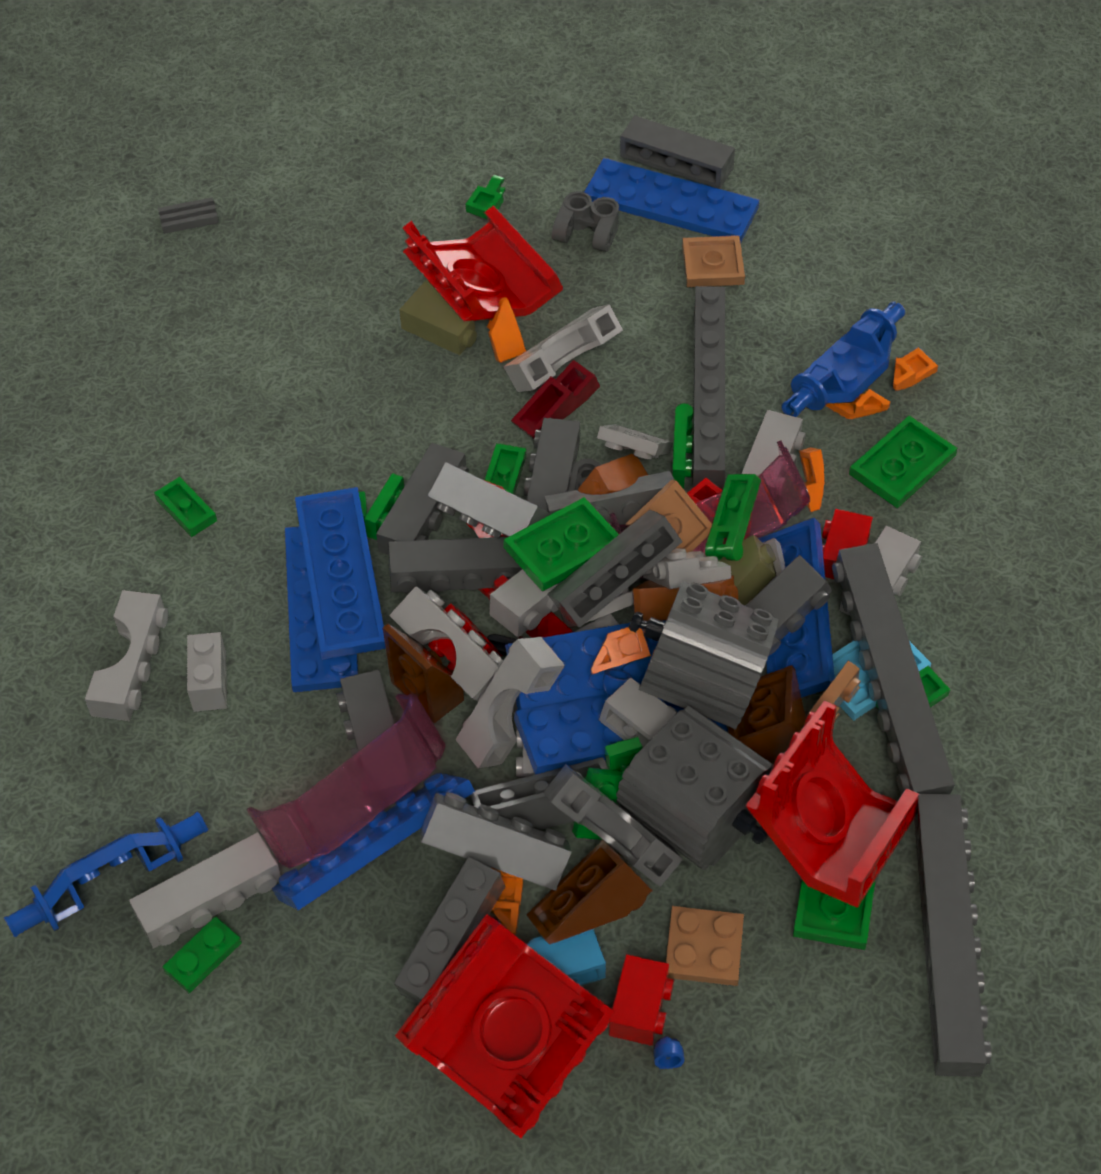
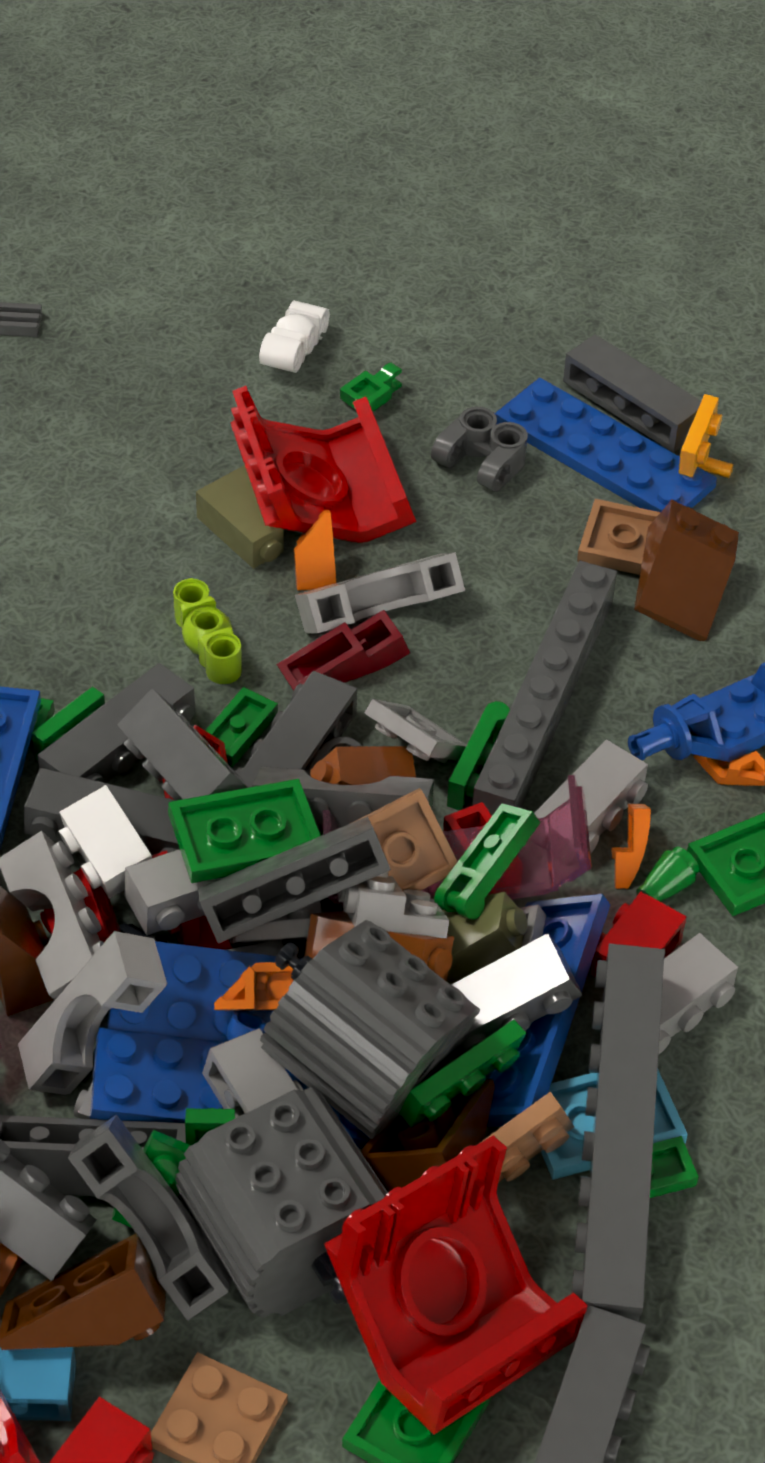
camera: 15 degrees right, 5 degrees down
(414, 173) = (294, 336): none -> white piece
(451, 410) = (207, 631): none -> lime piece
(462, 580) = (103, 838): none -> white brick
(742, 183) = (696, 445): none -> light orange plate
(768, 272) = (685, 569): none -> reddish brown slope
(779, 666) = (463, 1075): none -> green plate
(846, 491) = (670, 874): none -> green cone

